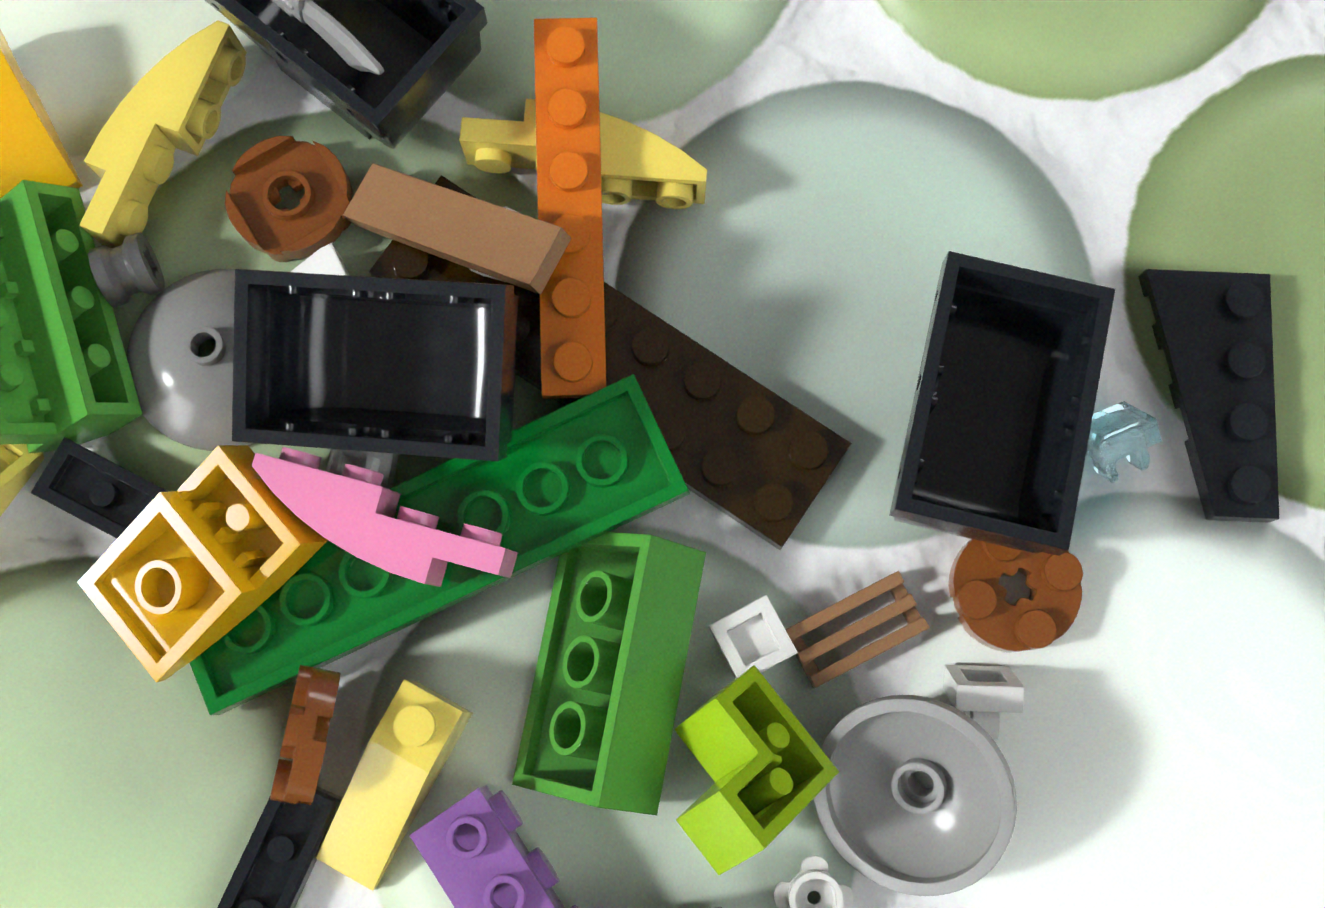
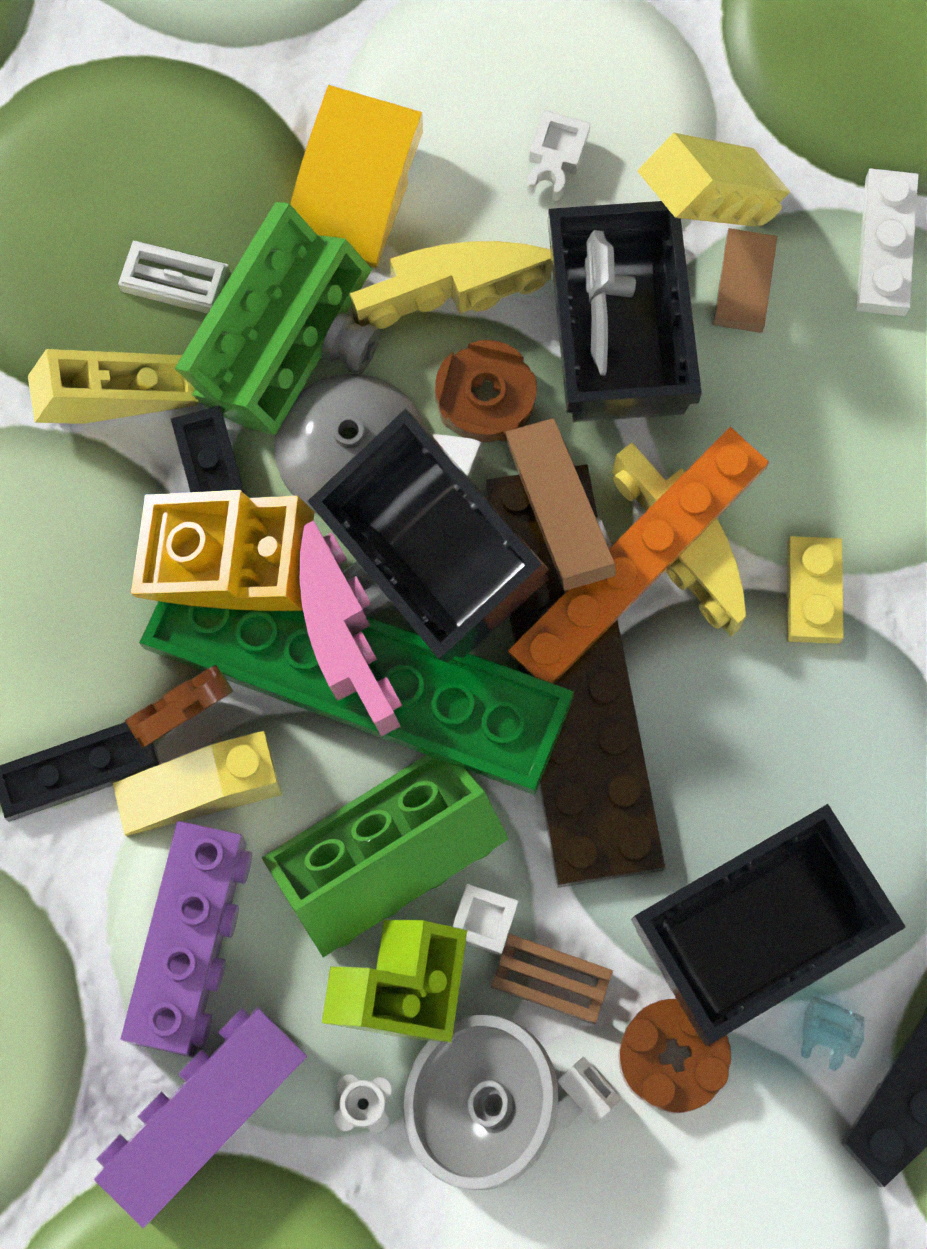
camera: 45 degrees right, 5 degrees down
(732, 98) = (814, 590): none -> light yellow plate

